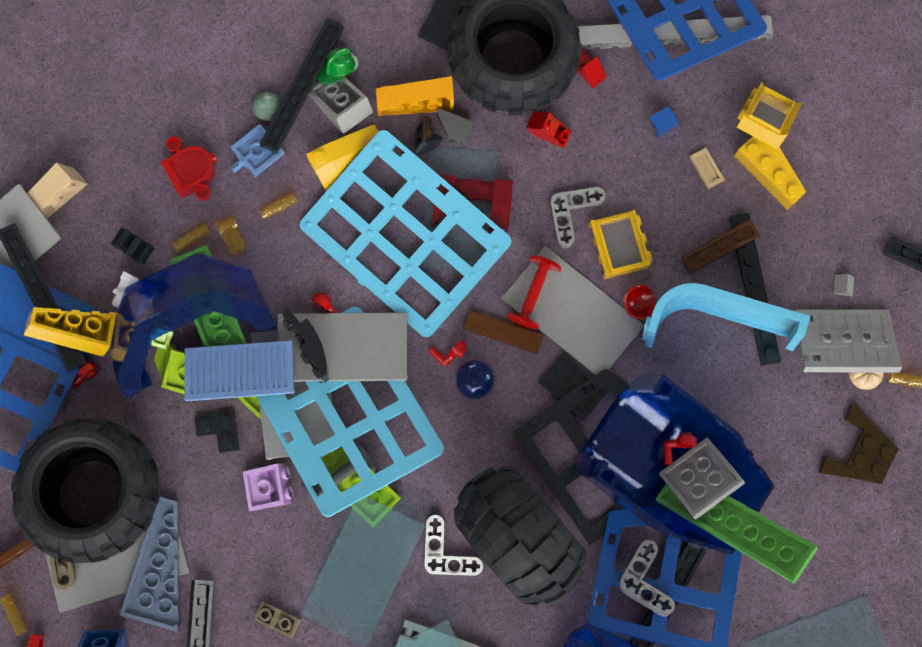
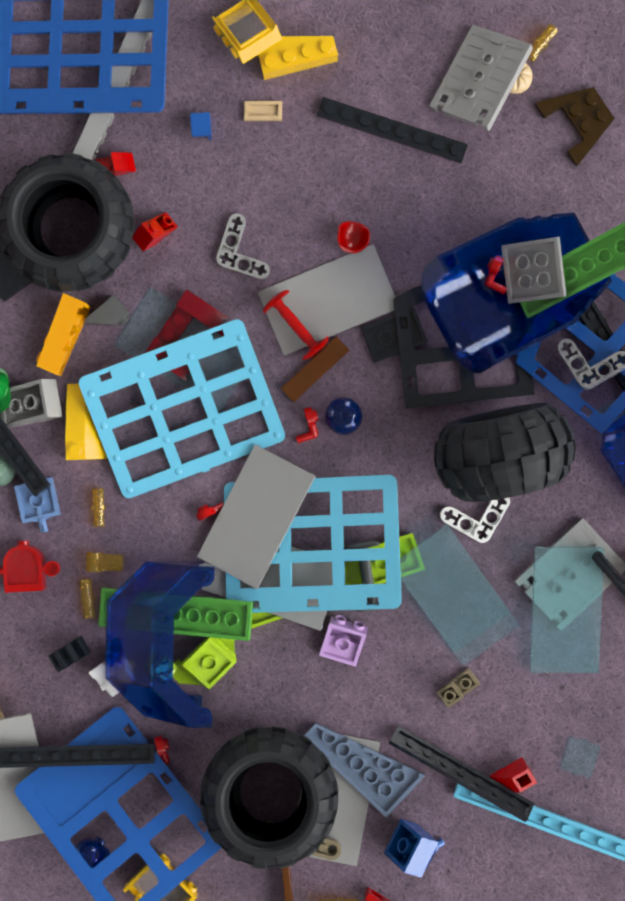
camera: 60 degrees left, 10 degrees up
(72, 328) = (120, 742): yellow wedge -> none
(221, 424) = (270, 652): black plate -> none
(239, 370) = (233, 616): medium blue window -> none
(311, 346) = (247, 544): black slope -> none
(424, 137) = (106, 347): black slope -> none
(620, 244) = (291, 225): window -> none
(721, 246) = (340, 138): reddish brown tile -> none
(730, 307) = (452, 117): medium azure panel -> none
(843, 285) = (429, 50): light grey slope -> none

